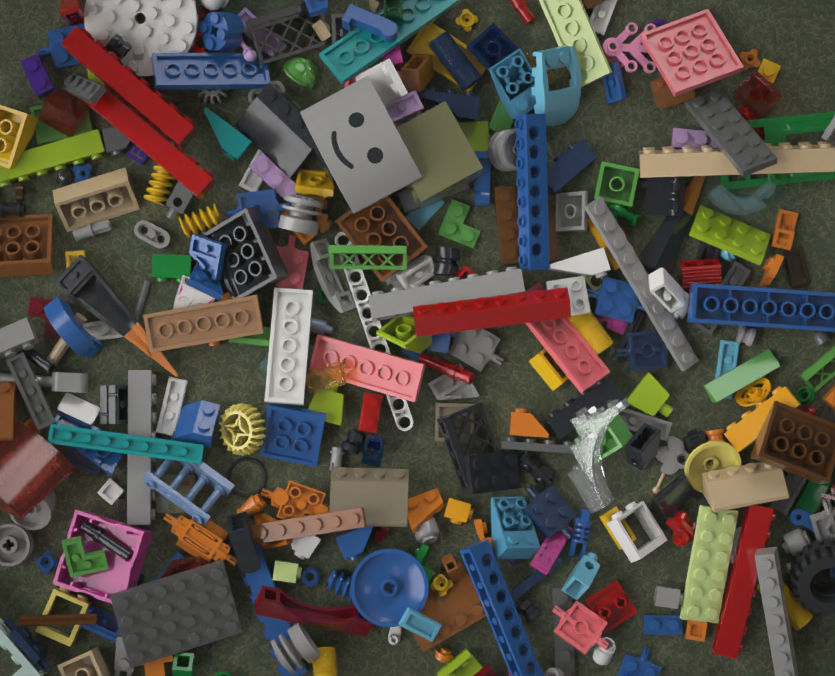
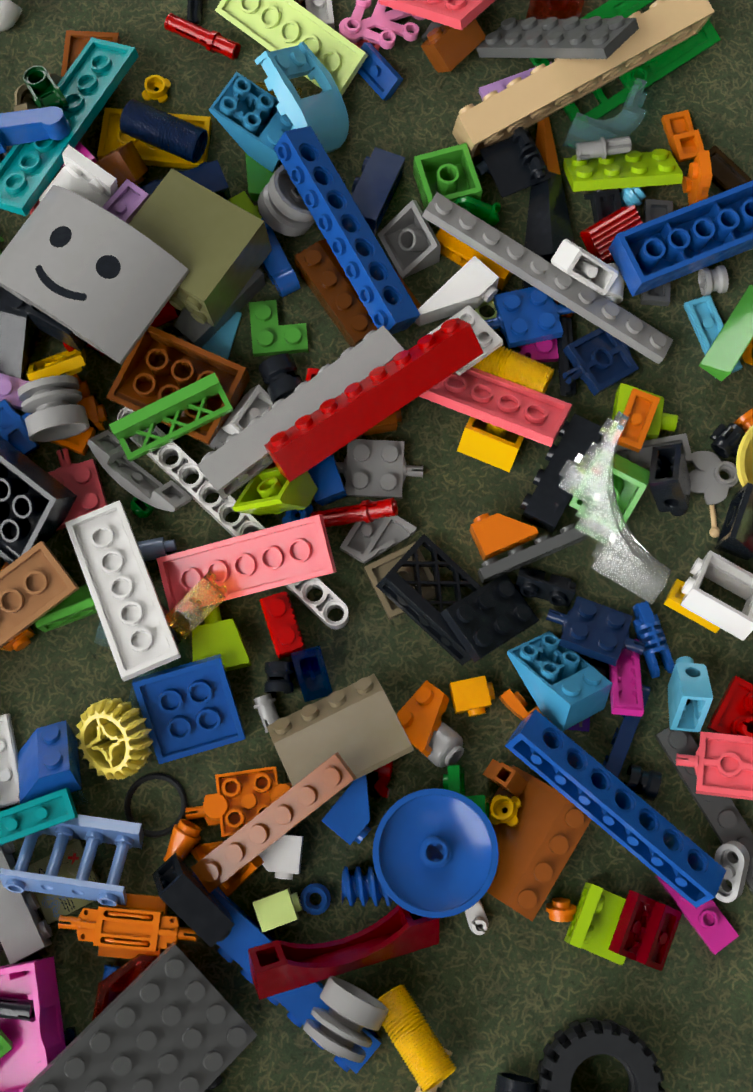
camera: 30 degrees left, 10 degrees down
(420, 624) = (507, 882): medium azure tile -> none
(491, 46) = (198, 91): clear blue slope -> none
(643, 401) = (640, 410): none -> orange plate
(724, 216) = (603, 148): none -> light grey axle

